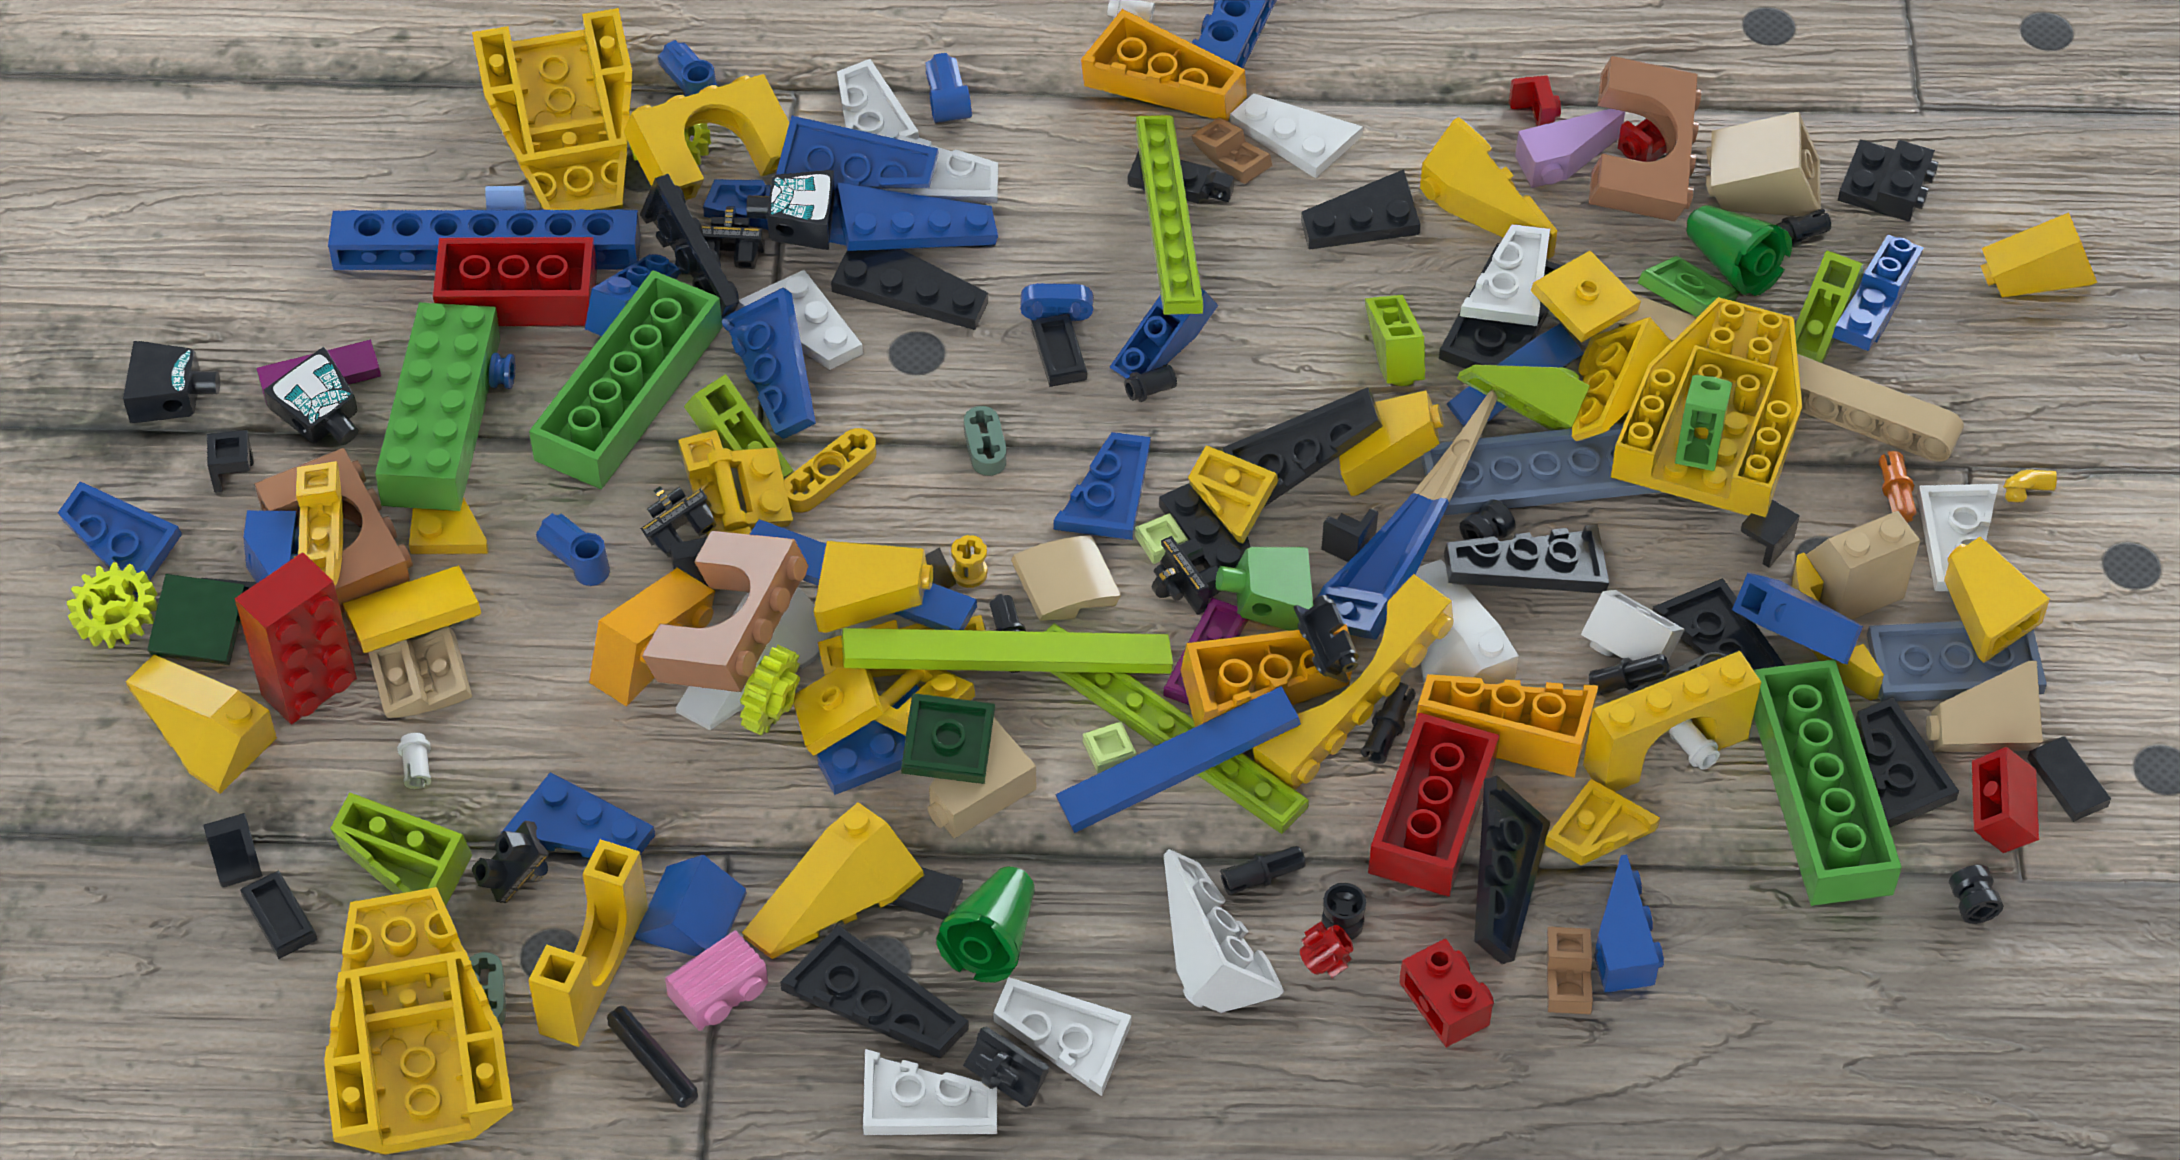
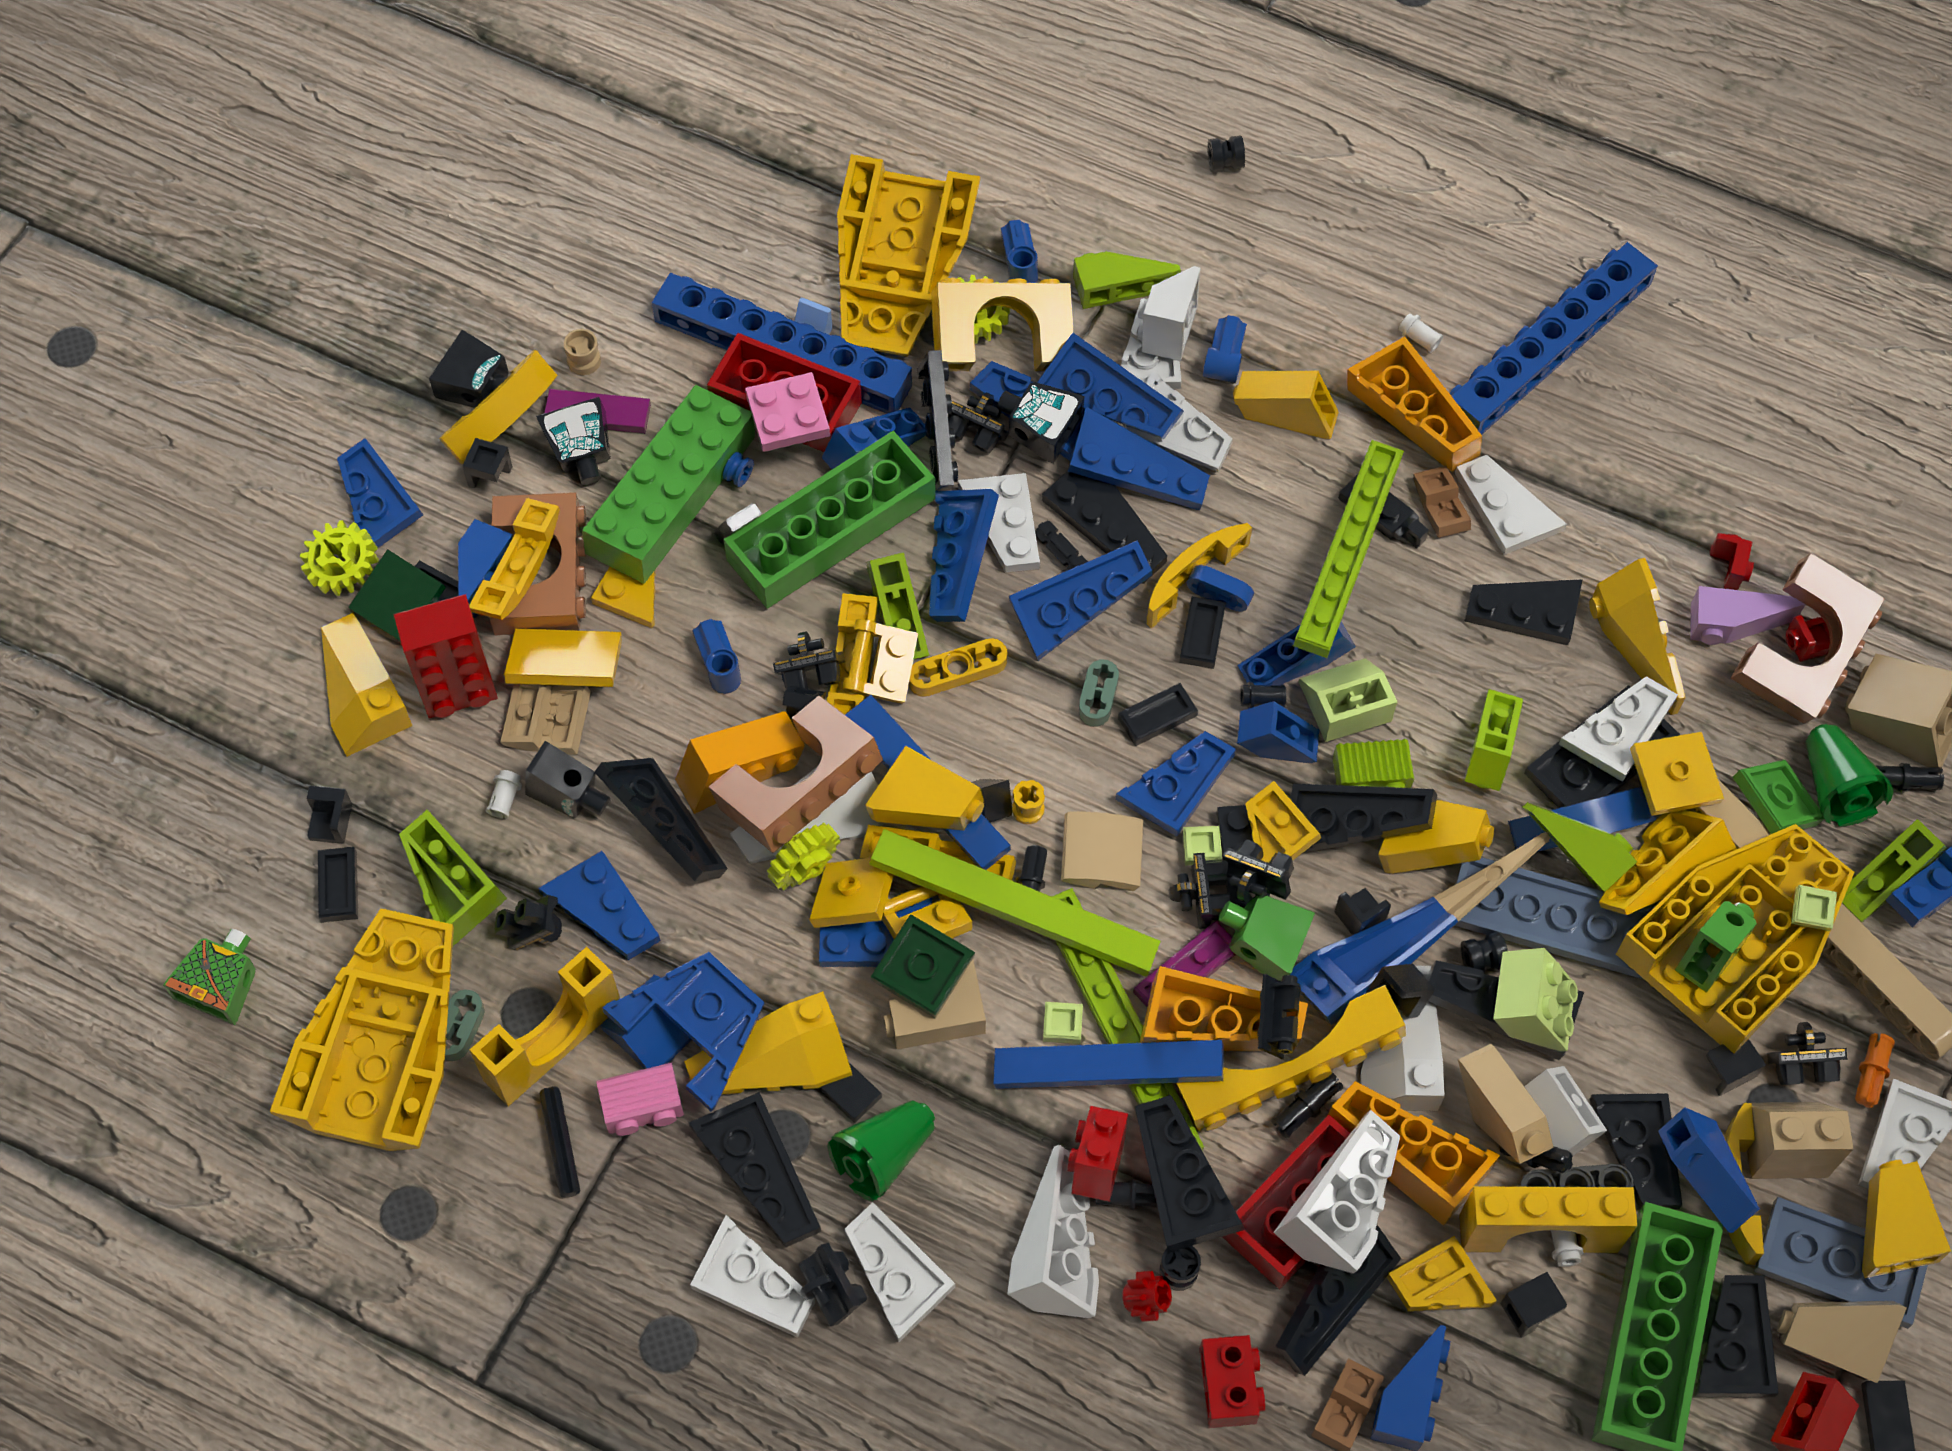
camera: 25 degrees right, 10 degrees up
(192, 1050) = (214, 977): none -> torso
(213, 405) = (501, 407): none -> yellow slope
(274, 320) = (582, 351): none -> tan wheel
(477, 721) = (563, 783): none -> black torso
(531, 414) = (737, 521): none -> tile
(534, 290) = (787, 412): none -> bright pink plate
(595, 709) = (662, 812): none -> black wing
(747, 862) = (708, 1007): none -> blue wing
(806, 59) = (1117, 277): none -> lime slope
(878, 325) = (1059, 545): none -> black axle
(879, 69) = (1169, 314): none -> white slope
(914, 364) = (1072, 599): none -> blue wing
(1033, 111) = (1287, 401): none -> yellow slope
(1035, 264) = (1222, 544): none -> yellow slope
(1054, 438) = (1157, 714): none -> black tile
(1183, 409) = (1277, 734): none -> blue slope
(1212, 839) = (1099, 1153): none -> red brick
(1235, 531) = (1256, 876): none -> black hips
(1238, 352) = (1349, 698): none -> yellowish green slope
(1289, 397) = (1374, 764): none -> lime brick
(1311, 829) = (1184, 1184): none -> black wing
(1434, 570) = (1406, 987): none -> black panel
(1475, 776) = (1340, 1208): none -> white wedge
(1558, 537) = (1535, 999): none -> yellowish green slope
(1578, 640) = (1503, 1105): none -> tan slope
(1693, 806) = (1533, 1303): none -> black panel
(1774, 356) = (1814, 907): none -> yellowish green tile
(1819, 508) = (1825, 1061): none -> black hips

